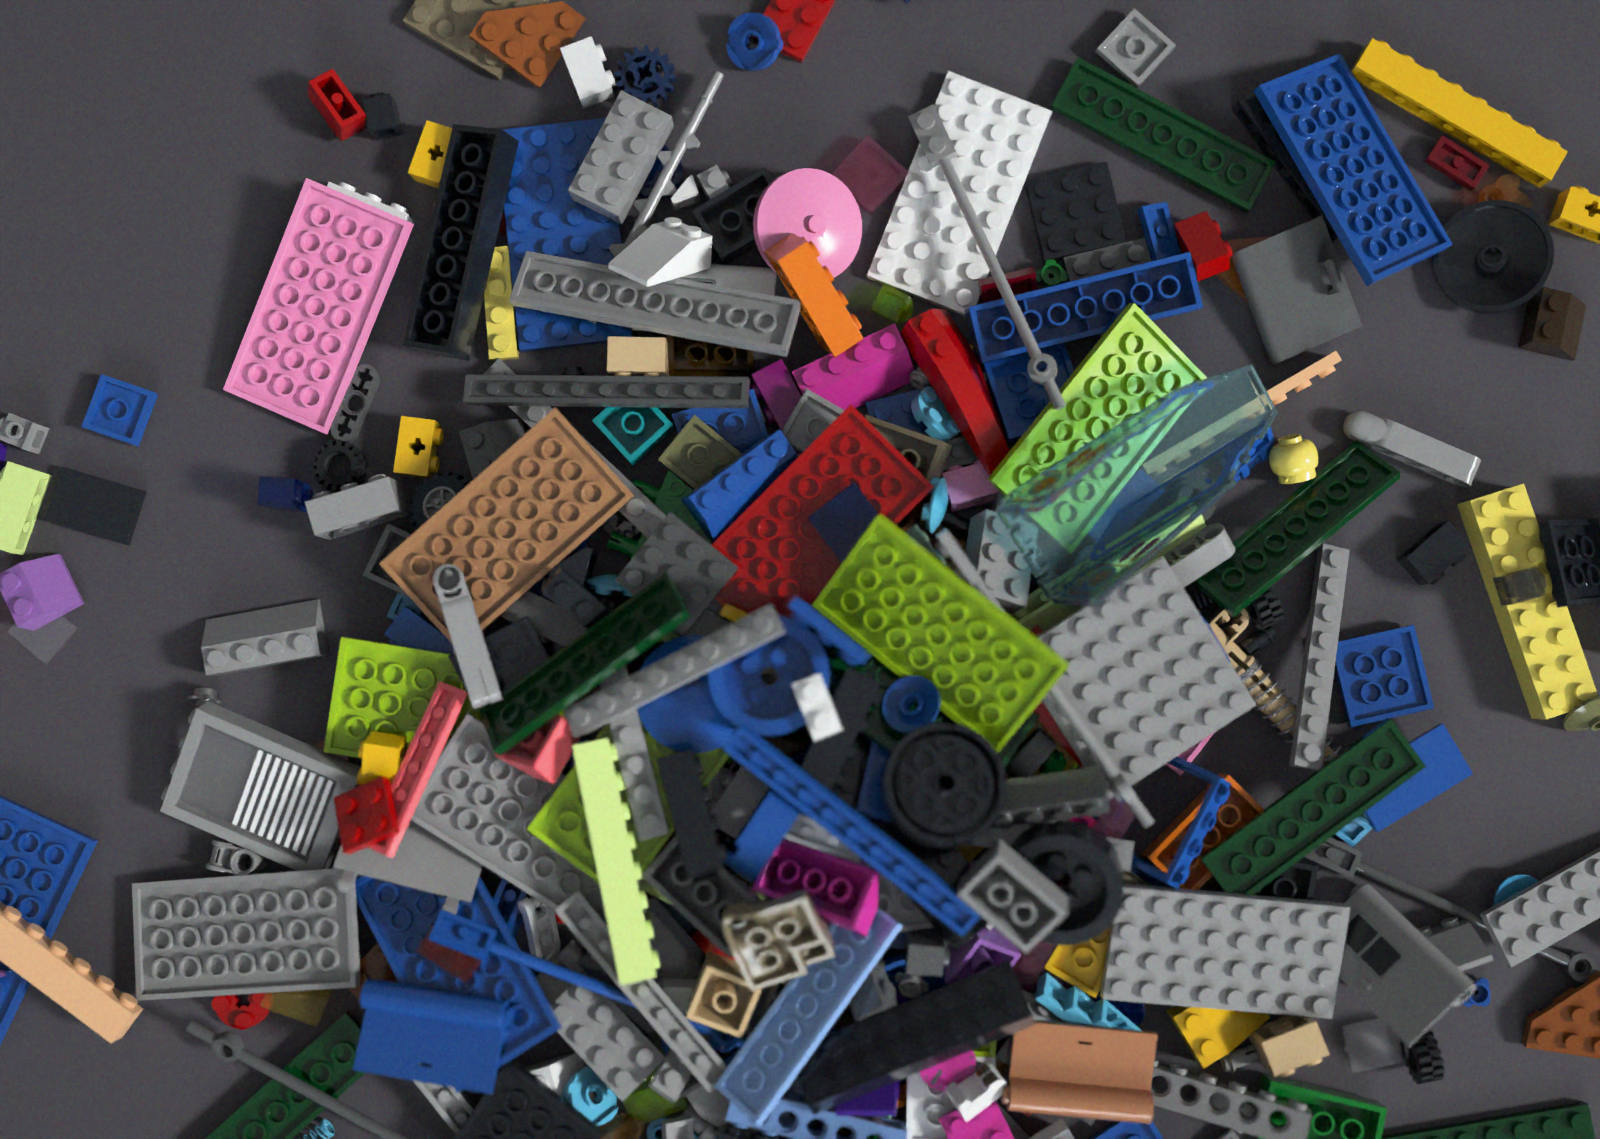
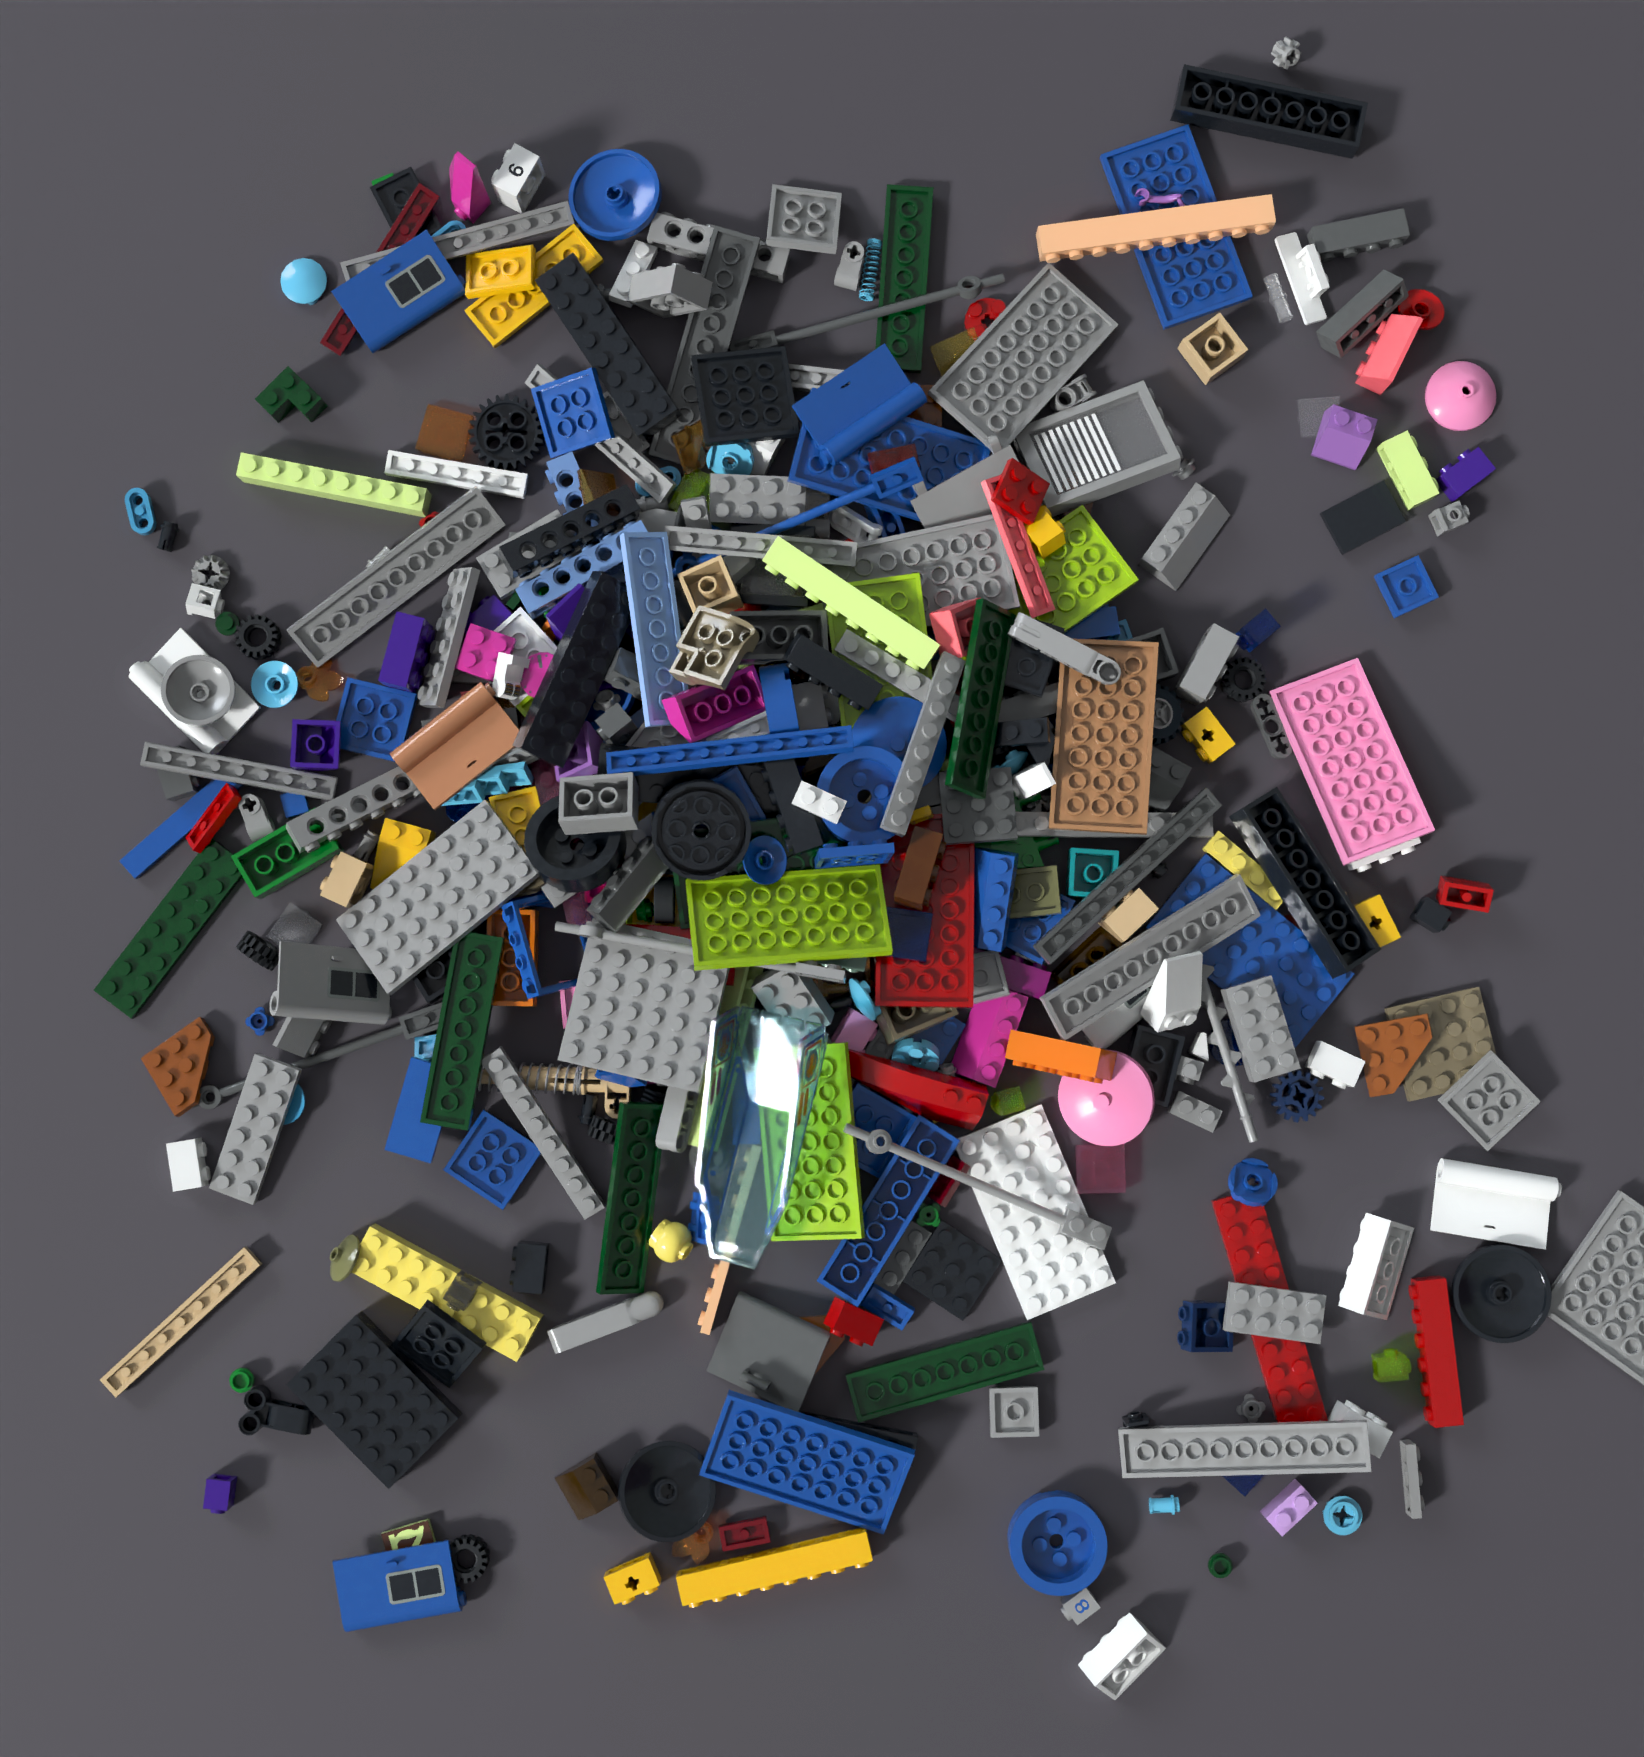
camera: 140 degrees right, 0 degrees up
(72, 780) = (1212, 348): none -> tan brick
(607, 551) = (1032, 780): none -> white slope
(742, 146) = (1195, 1111): none -> light grey plate
(782, 566) = (919, 869): none -> reddish brown brick

